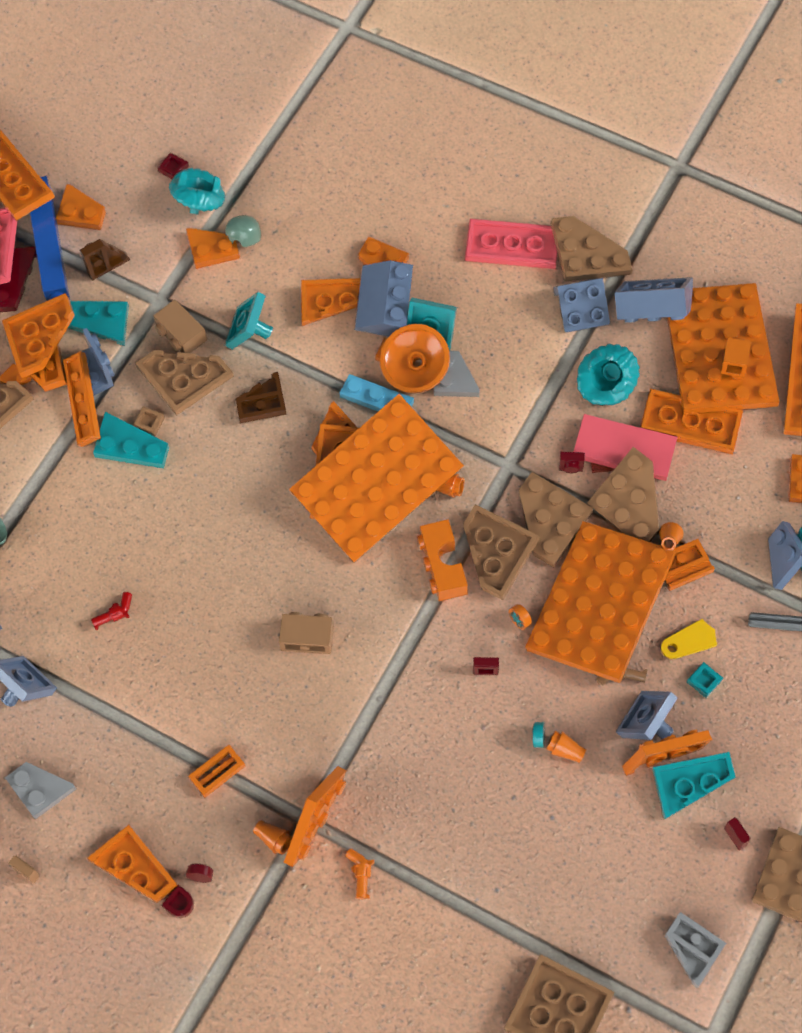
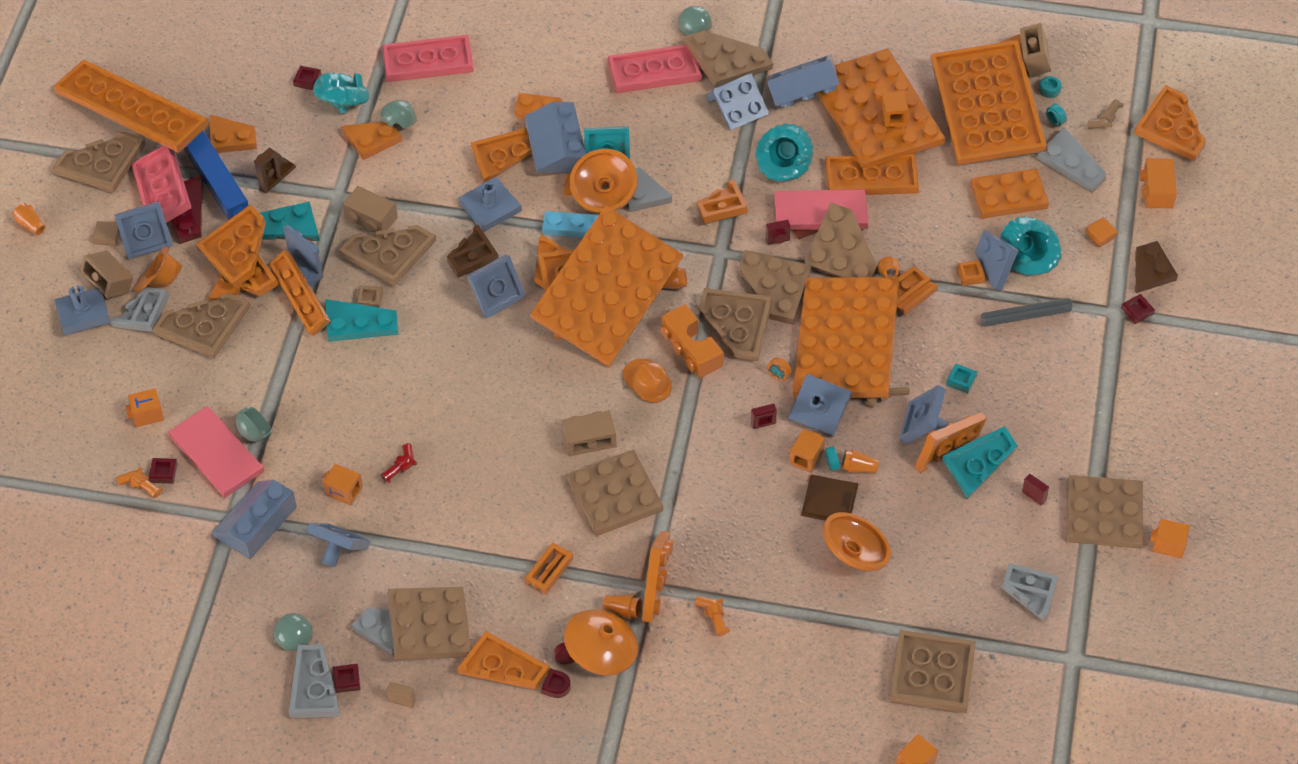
camera: 20 degrees left, 10 degrees down
(49, 619) = (342, 484): none -> orange brick
(78, 798) = (429, 622): none -> medium nougat plate
(222, 881) = (600, 642): none -> orange dish
(246, 322) = (433, 188): teal tile -> none
(269, 446) = (496, 286): none -> sand blue tile
(294, 175) = (427, 58): none -> coral tile
(299, 351) = (490, 204): none -> sand blue tile
(310, 706) = (615, 492): none -> medium nougat plate
(386, 588) = (647, 380): none -> orange piece
(517, 717) = (807, 450): none -> orange brick
(522, 778) = (828, 497): none -> reddish brown piece
(527, 414) = (722, 204): none -> orange wing
(538, 837) = (856, 541): none -> orange dish
(546, 671) = (820, 405): none -> sand blue tile
(569, 202) = (694, 20): none -> sand green hair
(690, 640) = (937, 350): yellow piece -> none
(755, 561) = (970, 273): none -> orange tile

